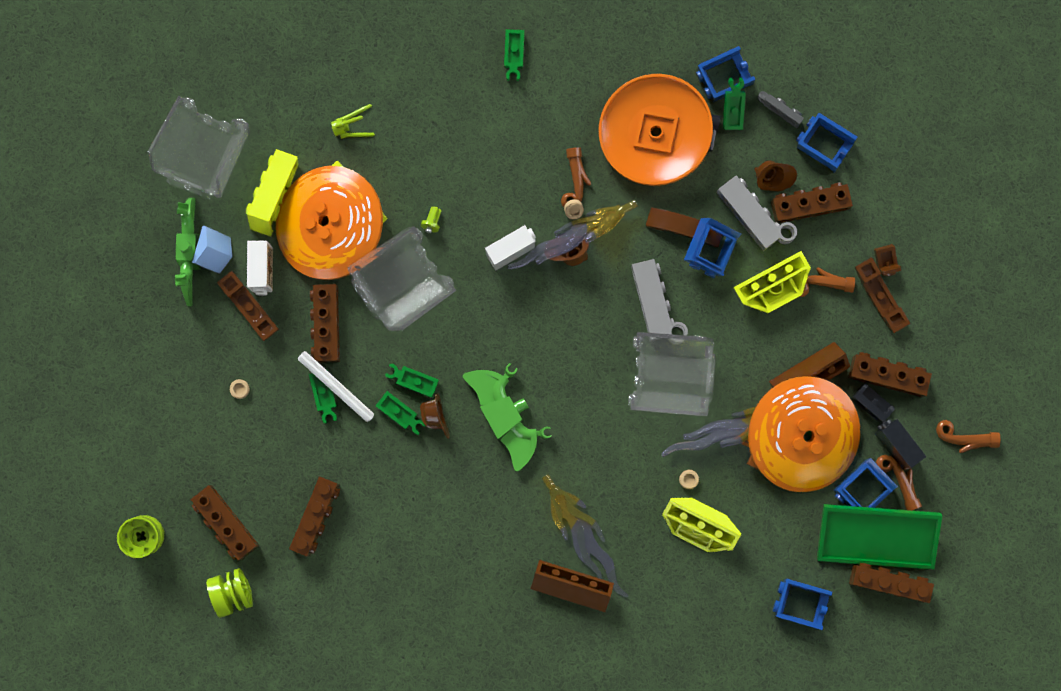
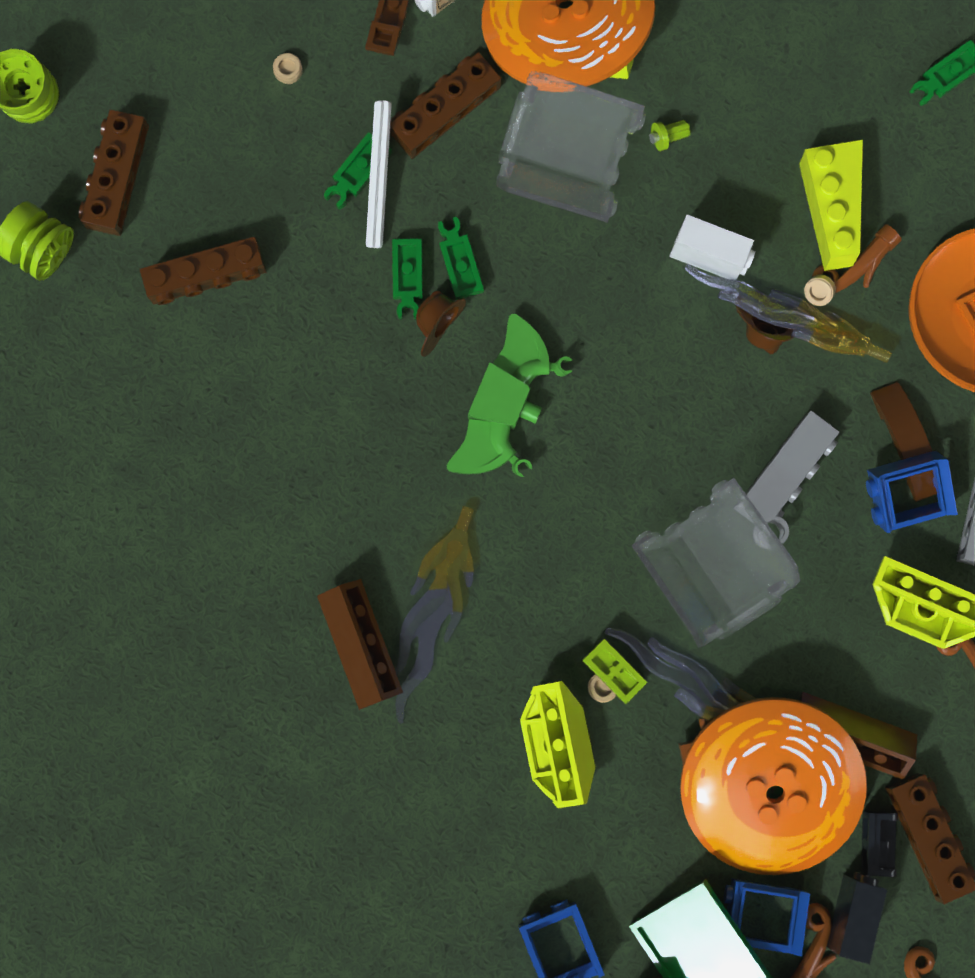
camera: 45 degrees right, 0 degrees up
(531, 163) = (834, 197): none -> neon yellow wedge
(686, 467) = (614, 671): none -> lime hinge

